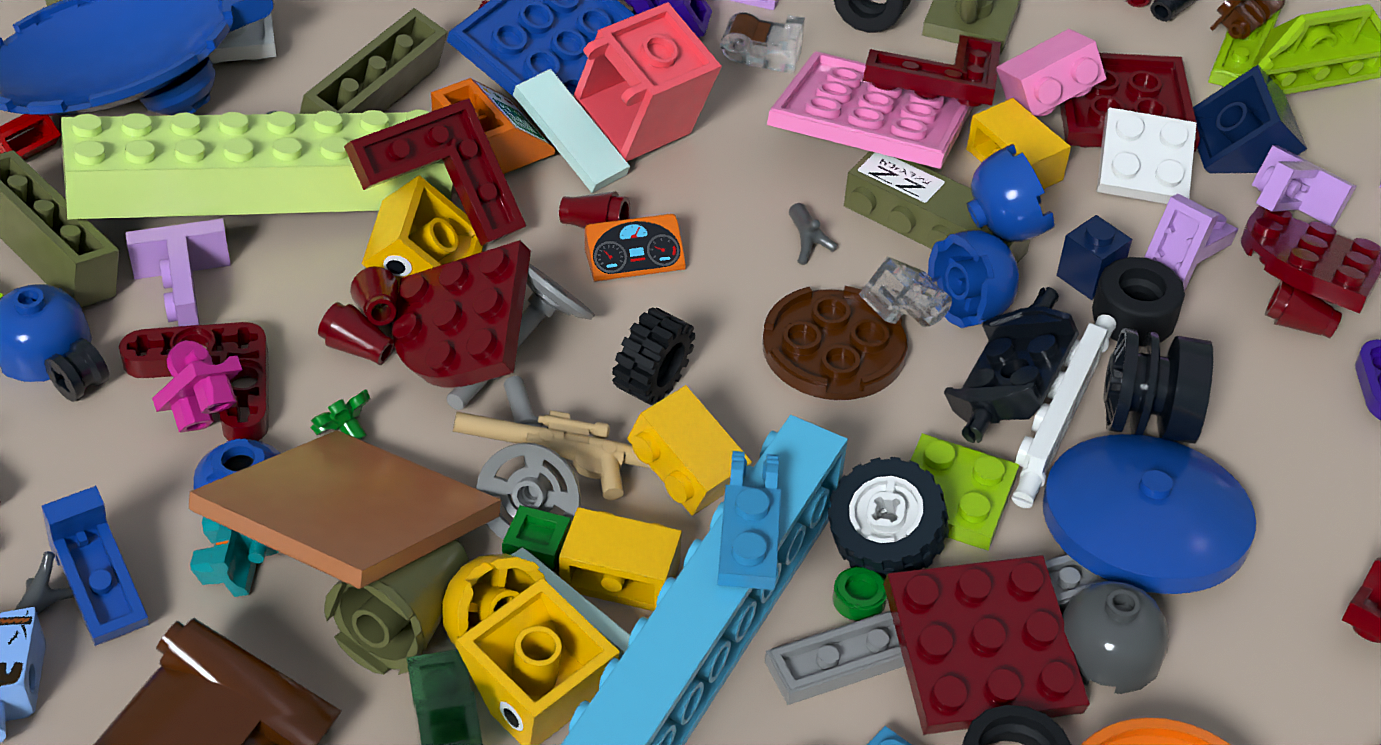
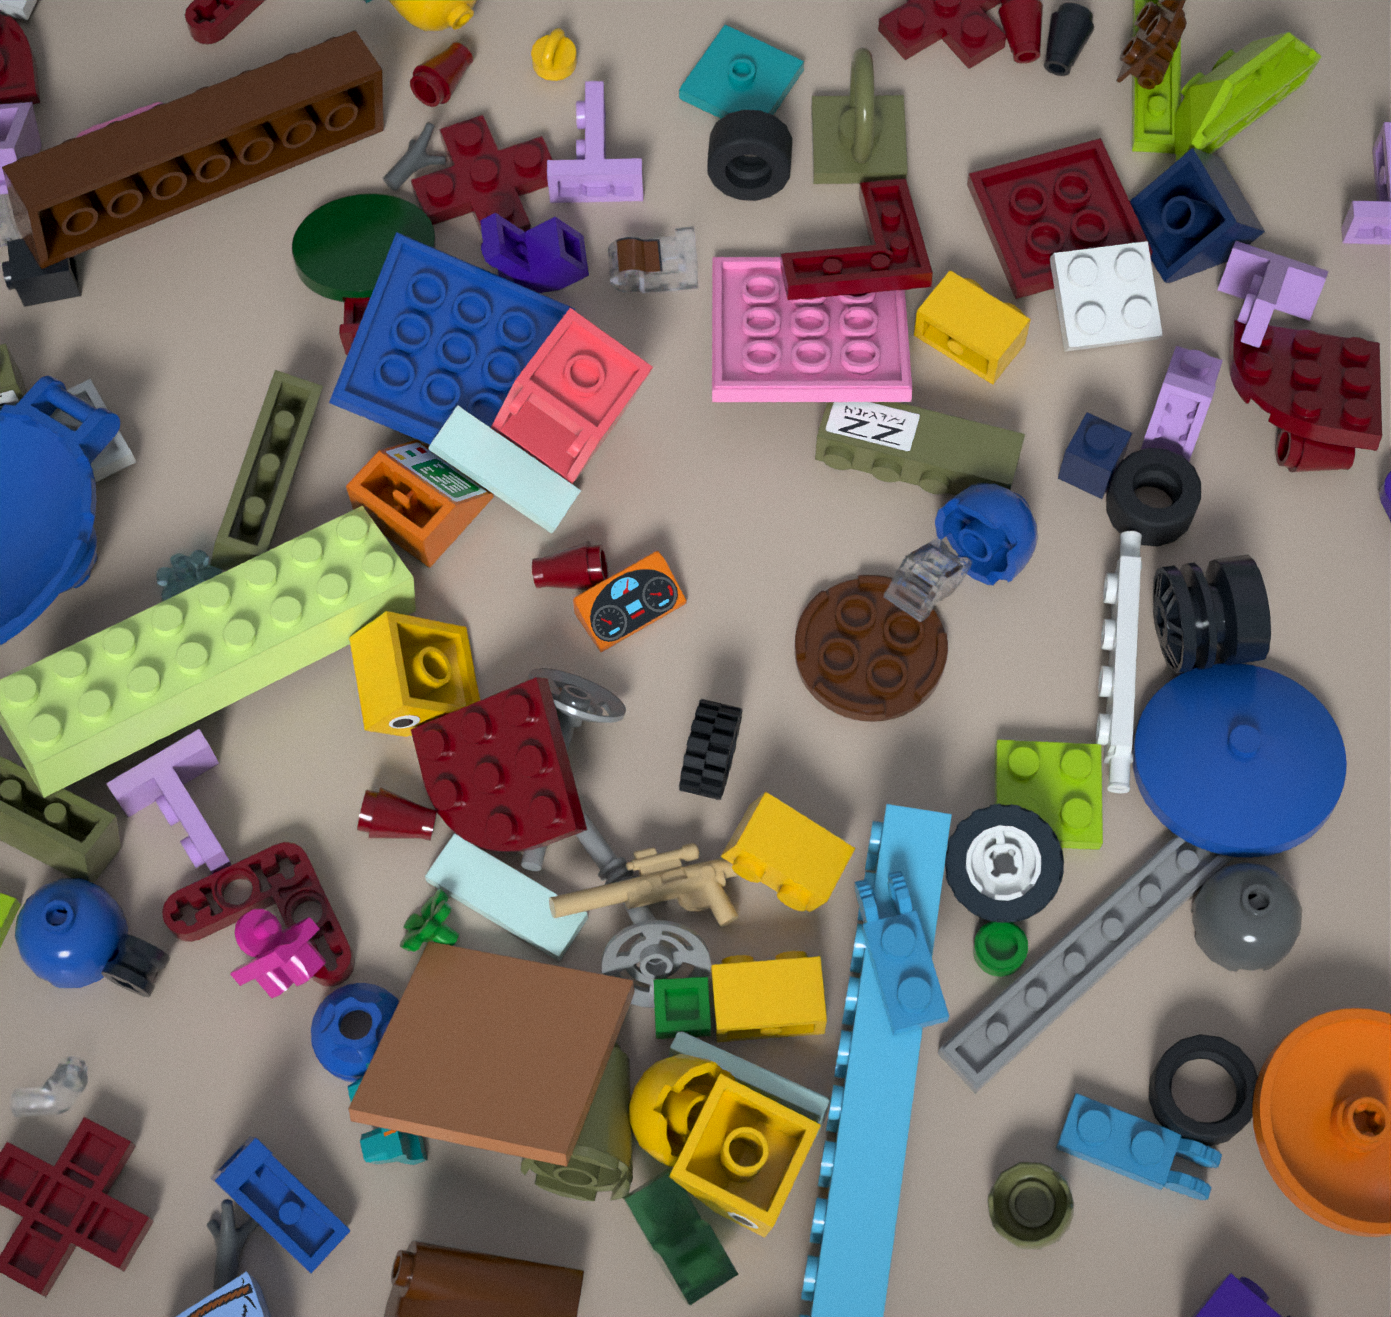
camera: 15 degrees left, 20 degrees up
(376, 294) = (396, 763): dark red cone -> none
(423, 421) = (503, 896): none -> light aqua tile
(458, 140) = (401, 558): dark red plate -> none
(809, 232) = (795, 513): dark grey bar -> none
(983, 641) = (1136, 971): dark red plate -> none
(1008, 197) = (999, 436): blue cylinder -> none
(1015, 366) = (1054, 595): black plate -> none
(1052, 72) = (981, 224): bright pink brick -> none

